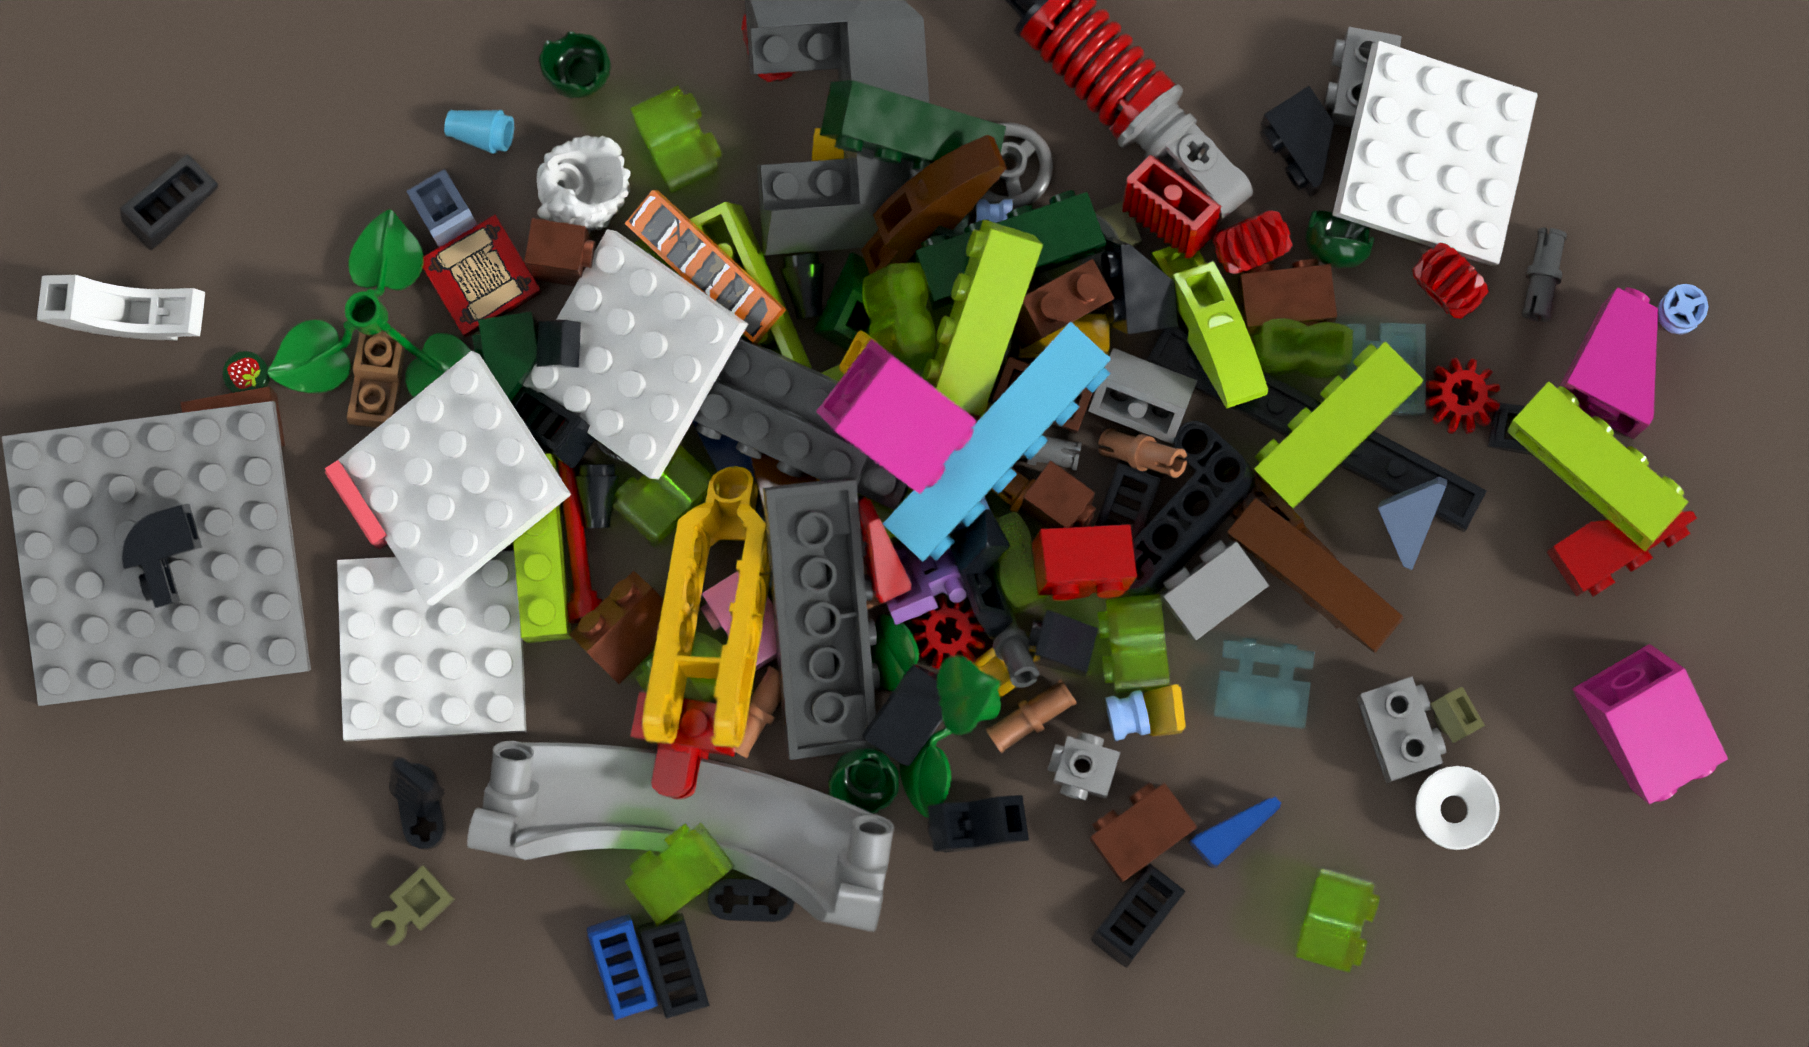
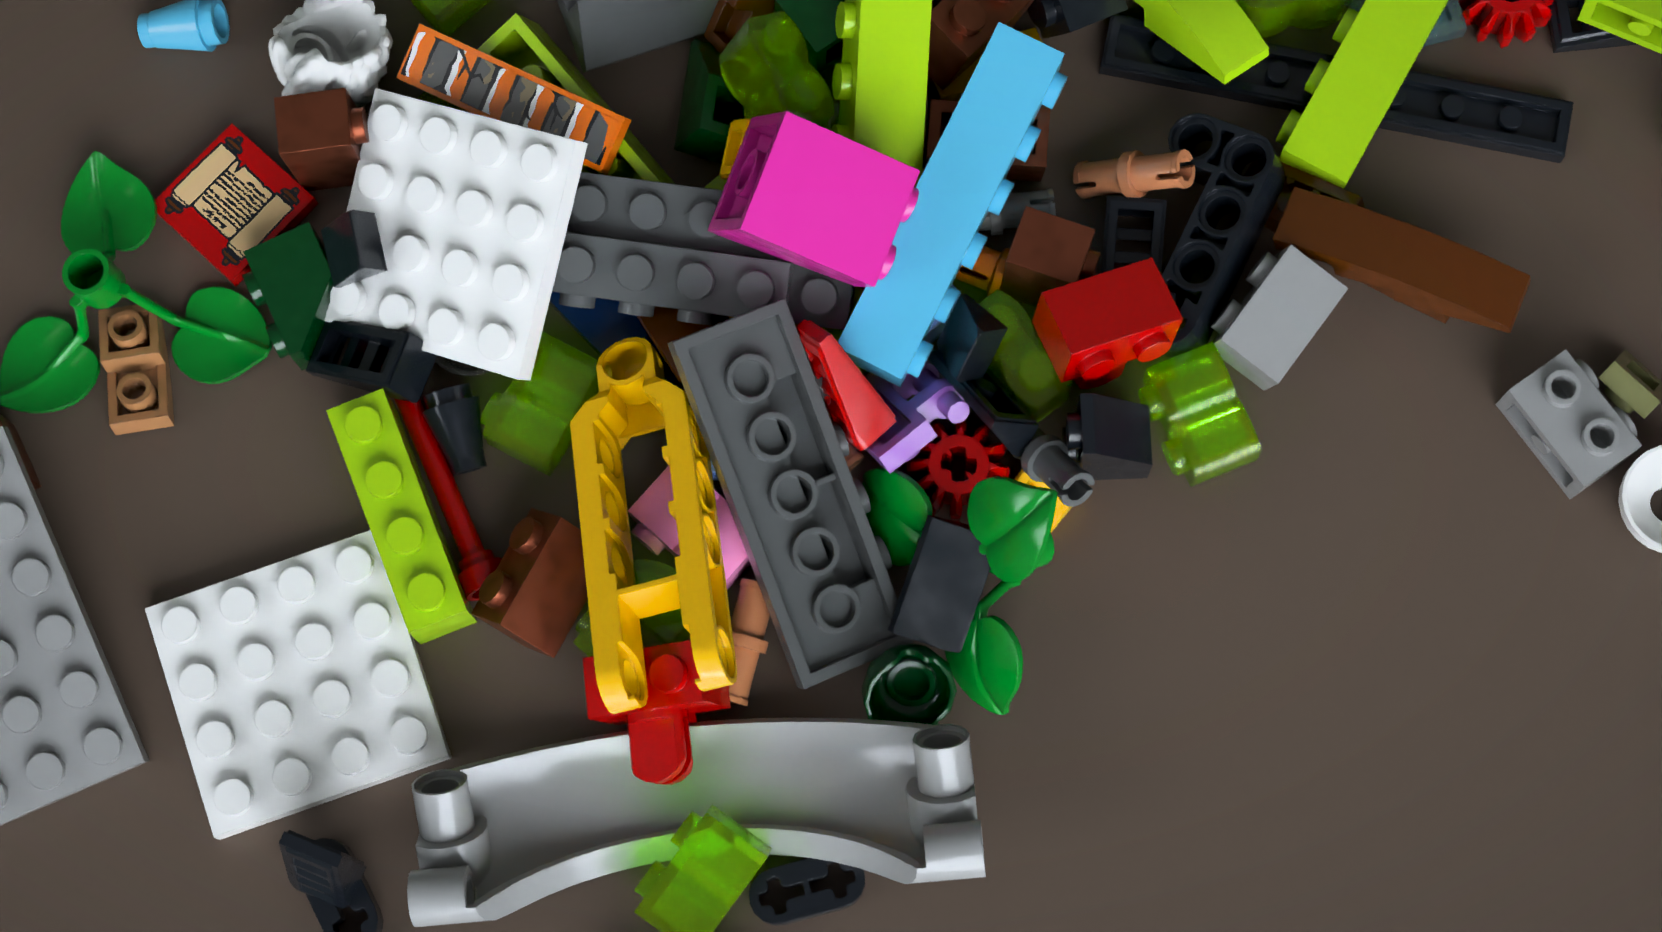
camera: 15 degrees left, 5 degrees down
(356, 504) = (152, 530): coral tile -> none
(442, 208) = (164, 134): sand blue slope -> none
(454, 478) = (264, 457): white plate -> none
(804, 282) = (645, 94): black cone -> none
(977, 824) = (1072, 700): black brick -> none
(1031, 716) = (1096, 544): nougat pin -> none
(1101, 763) = (1204, 575): light grey brick -> none
(1114, 945) = (1295, 805): black slope -> none
(1127, 715) = (1219, 507): light blue wheel -> none
(1141, 831) = (1285, 649): copper brick -> none
(1143, 396) = (1114, 107): light grey brick -> none
(1165, 710) = (1264, 488): yellow slope -> none
(1222, 839) = (1394, 625): blue slope -> none
(1263, 698) = (1380, 437): clear light blue plate -> none
(1336, 921) = (1570, 689): clear neon green brick -> none
(1410, 517) = (1496, 157): sand blue slope -> none

